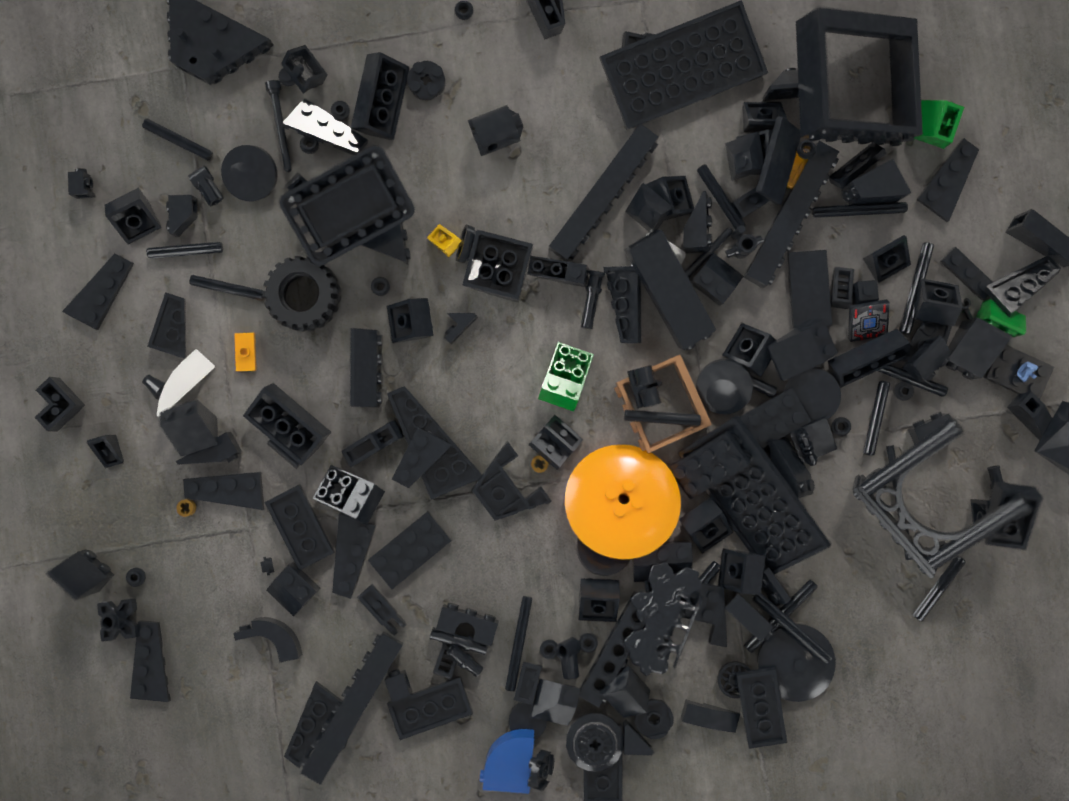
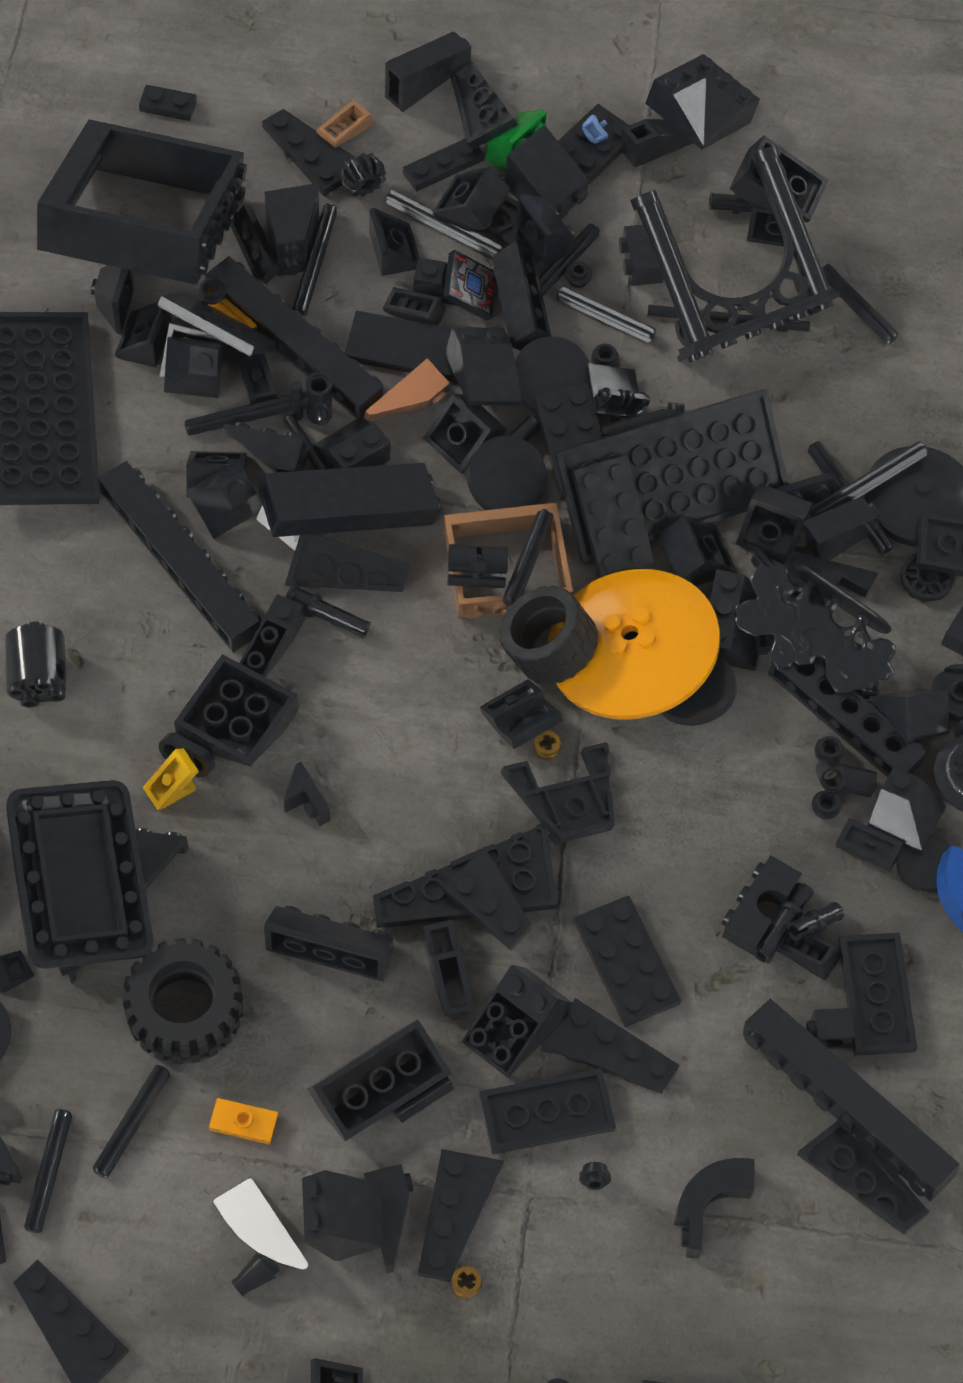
camera: 80 degrees left, 25 degrees down
(170, 327) = (166, 1227): black wing -> none
(293, 589) = (643, 1147): black slope -> none
(376, 282) = (208, 885): black plate -> none
(380, 608) = (705, 1024): black hinge -> none
(410, 320) = (275, 863): black slope -> none
(518, 643) = (808, 844): black axle -> none
(565, 376) = (430, 674): green slope -> none
(599, 600) = (769, 716): black slope -> none
(610, 426) = (533, 615): none -> black tyre
(771, 307) = (412, 393): none -> nougat slope
(937, 221) = (363, 174): none -> black gear
(939, 122) = (236, 132): green slope -> none
(960, 68) = (168, 102): none -> black plate
(992, 196) = (351, 110): none -> medium nougat slope

